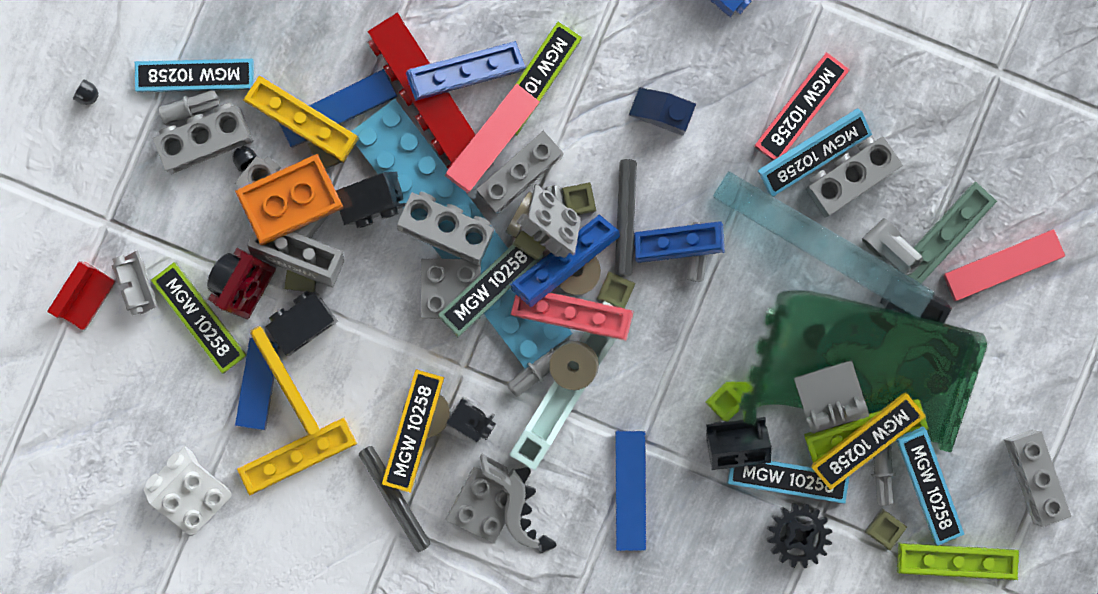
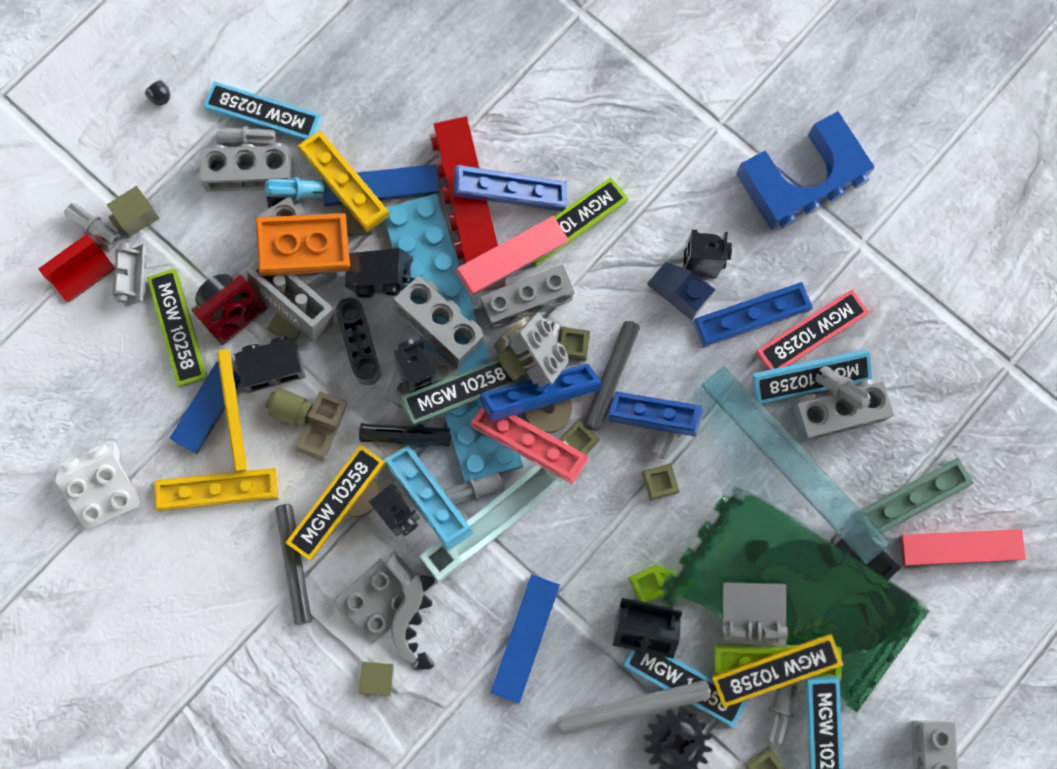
camera: 15 degrees right, 10 degrees down
(77, 249) = (92, 225): none -> light grey axle
(110, 222) = (131, 212): none -> olive brick
(258, 144) = (294, 188): none -> medium azure axle
(335, 357) = (288, 407): none -> olive brick
(365, 270) = (361, 324): none -> black beam
(371, 363) = (321, 426): none -> dark tan slope
(441, 283) = (414, 365): none -> black hinge
(452, 344) = (405, 434): none -> black pin
(496, 396) = (428, 497): none -> medium azure tile
(509, 573) = (376, 678): none -> olive tile
(564, 374) = (527, 493): dark tan piece -> none
(676, 70) = (706, 253): none -> black hinge
(705, 303) = (660, 482): none -> olive tile
(739, 110) = (752, 314): none -> blue tile
(750, 517) = (634, 707): none -> light grey axle
(847, 158) = (843, 388): none -> light grey axle
(888, 242) = (858, 486): light grey piece -> none

